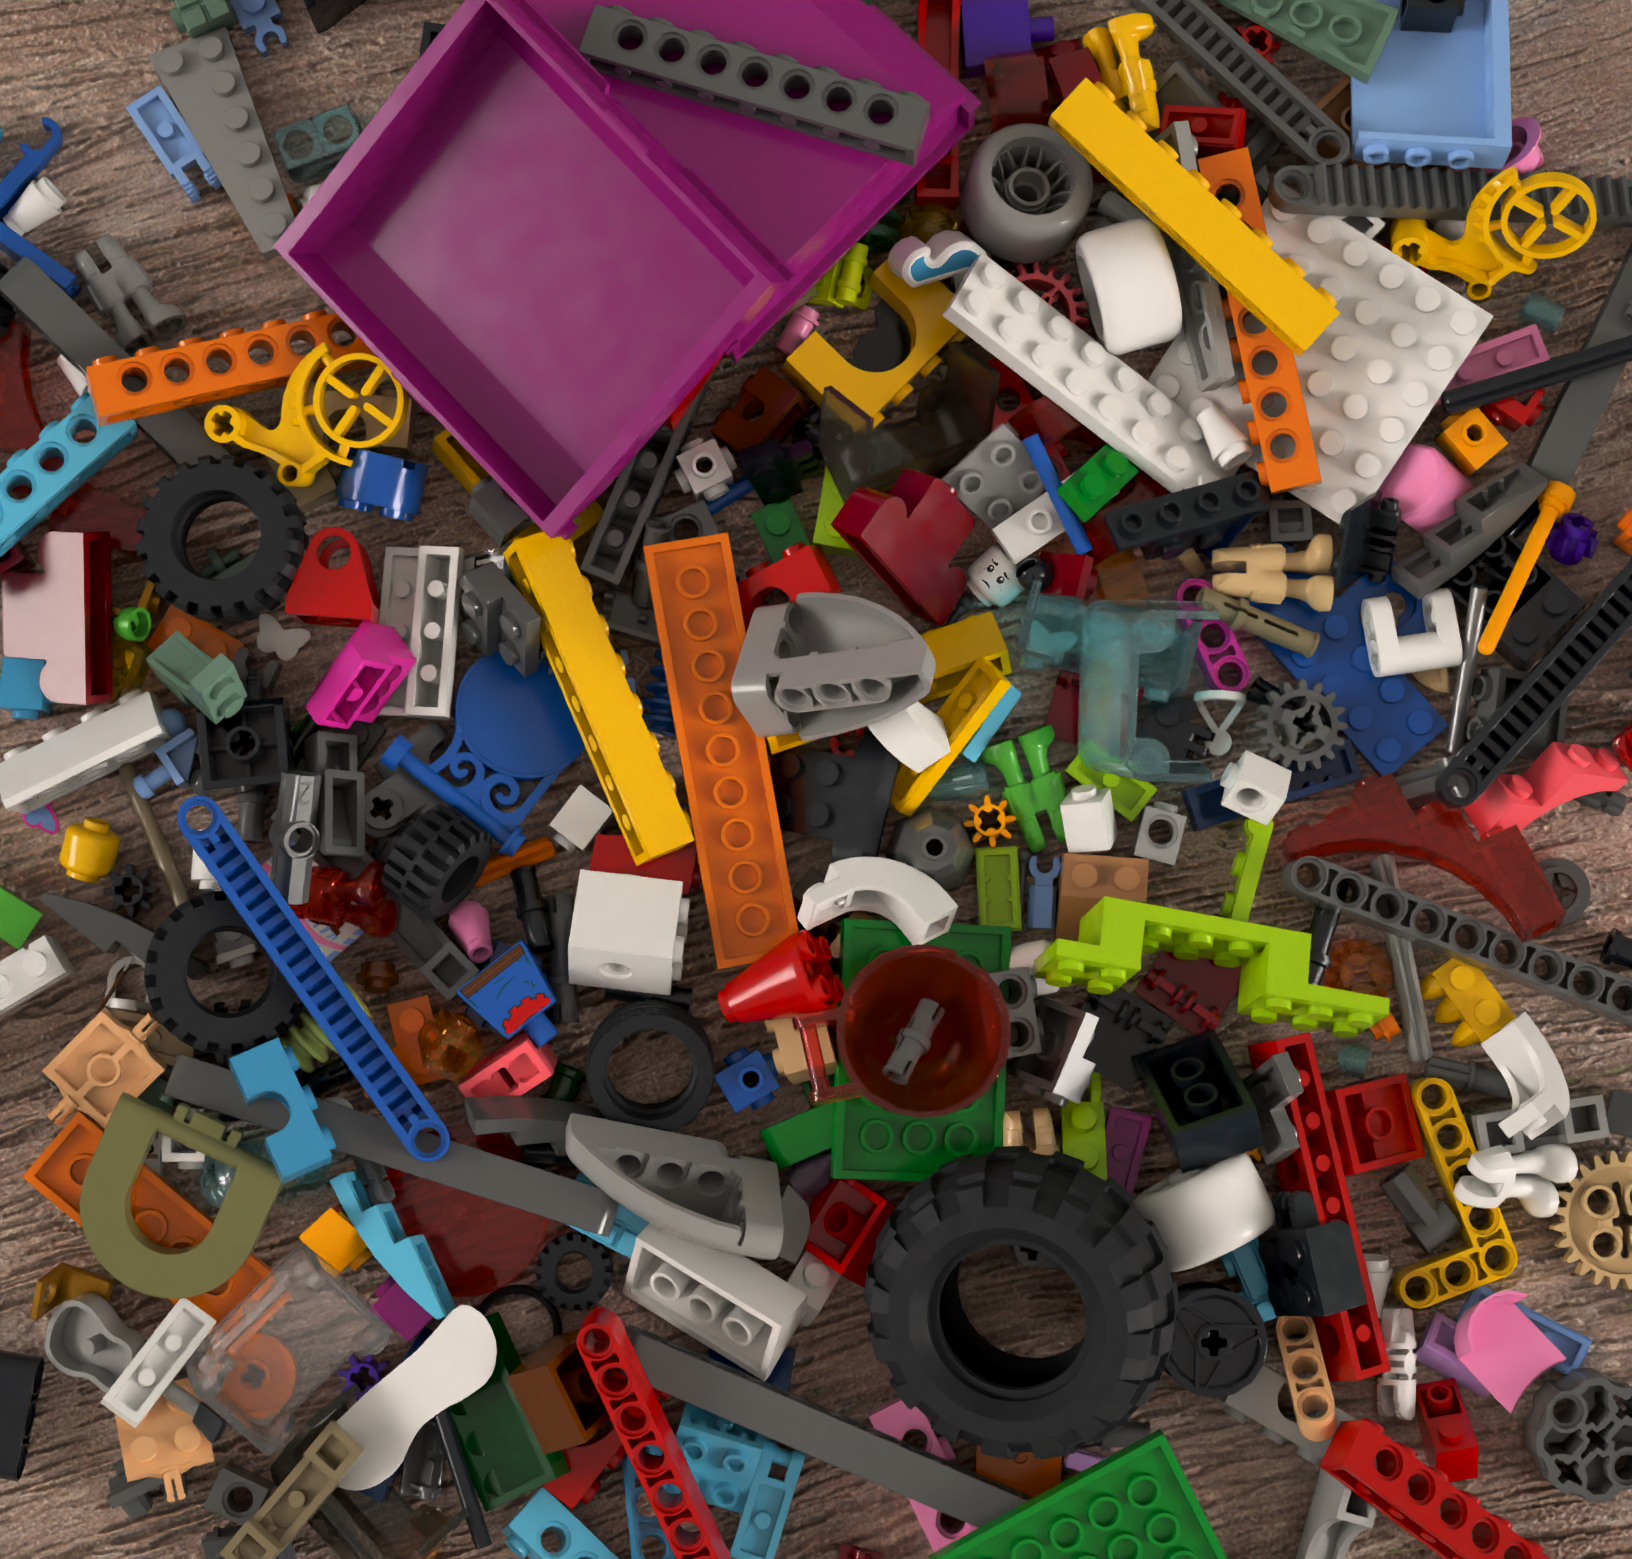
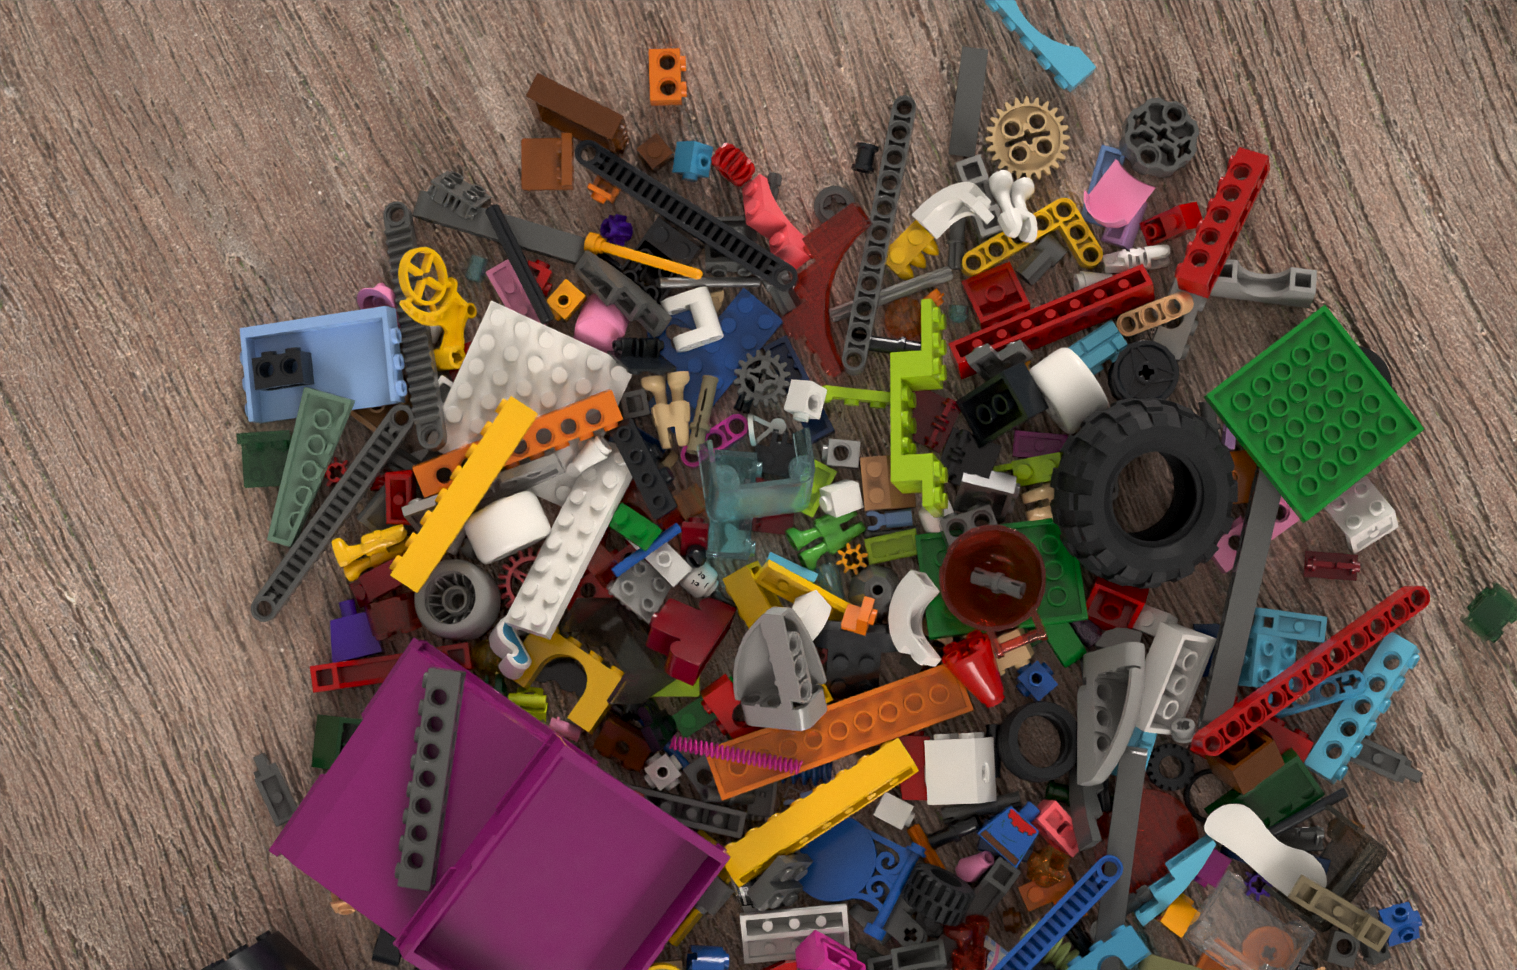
camera: 90 degrees left, 0 degrees up
(629, 1301) = (1183, 730): none -> light grey bush
(703, 587) = (737, 754): none -> dark pink piece
(894, 813) = (858, 618): none -> orange bracket
(1309, 1260) = (1087, 323): black hinge -> none

